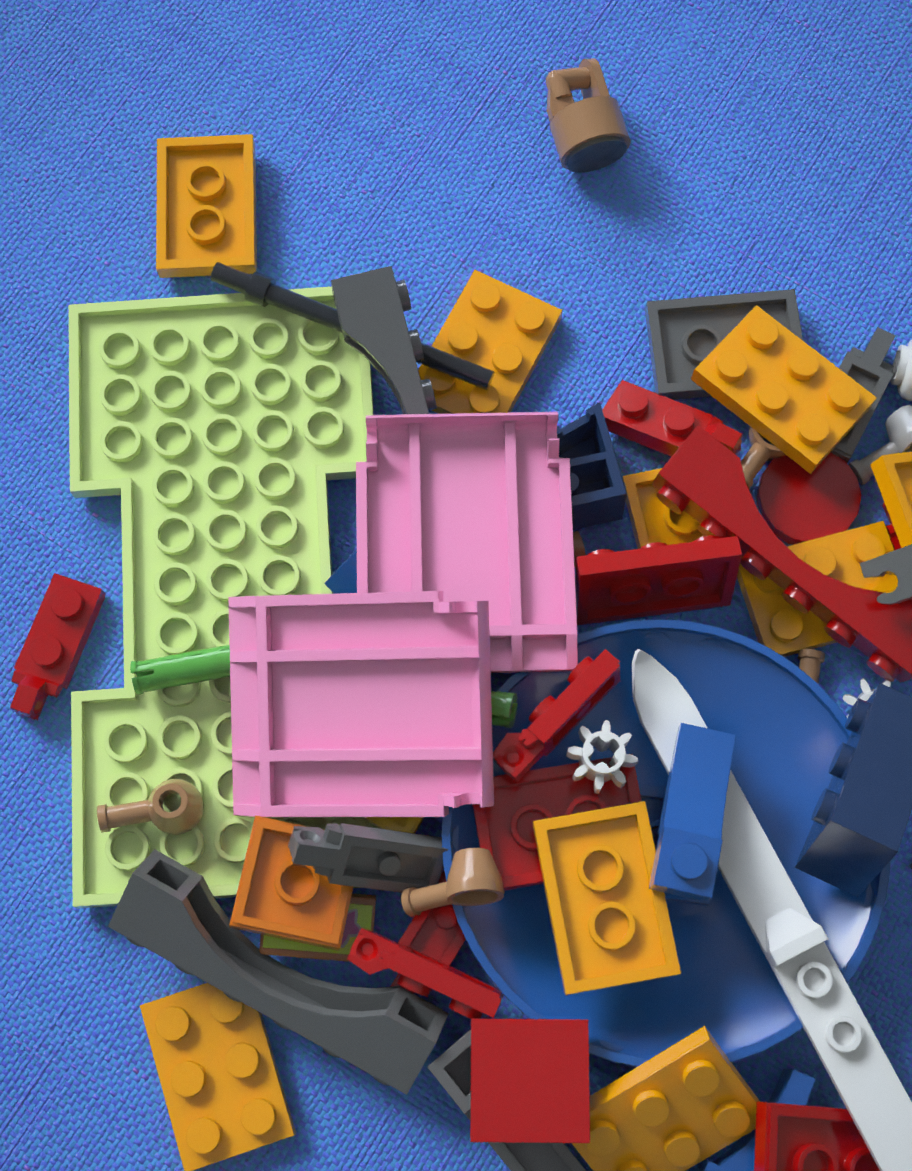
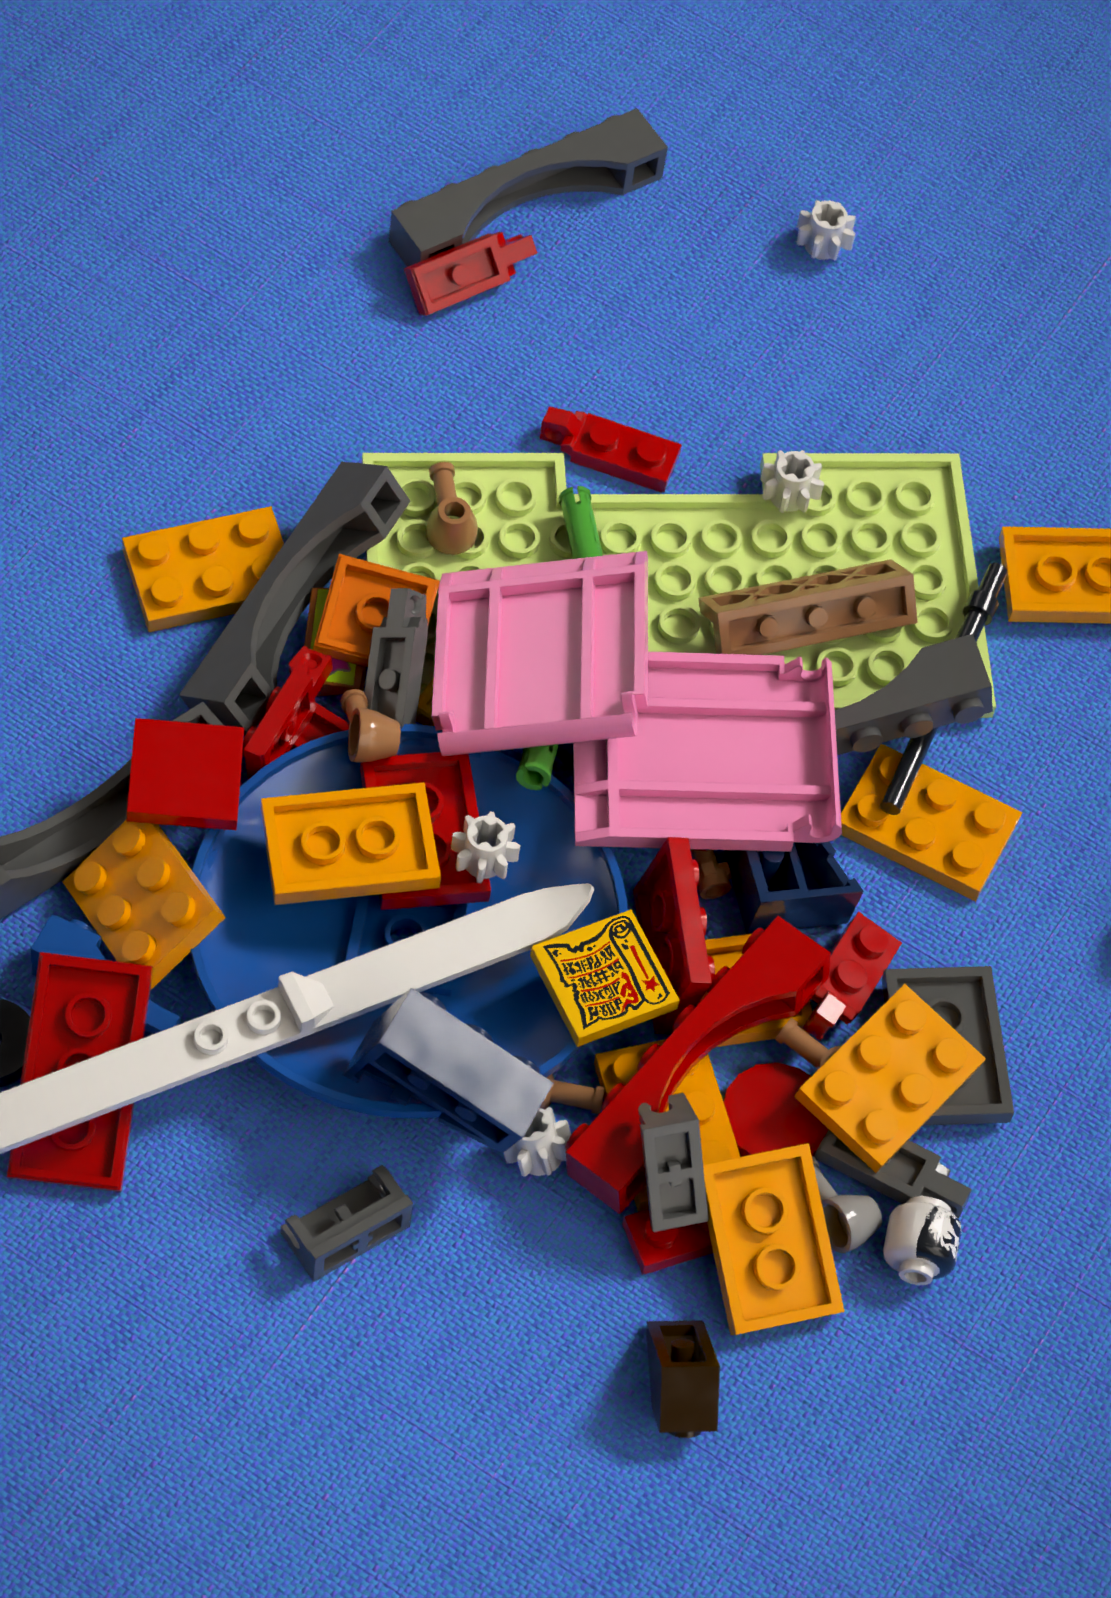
camera: 80 degrees right, 15 degrees down
(111, 444) = (792, 481): none -> white gear
(274, 438) = (812, 609): none -> medium nougat fence
(558, 717) = (537, 826): red hinge -> none
(693, 813) = (425, 915): blue slope -> none
(729, 640) = (604, 977): none -> yellow tile

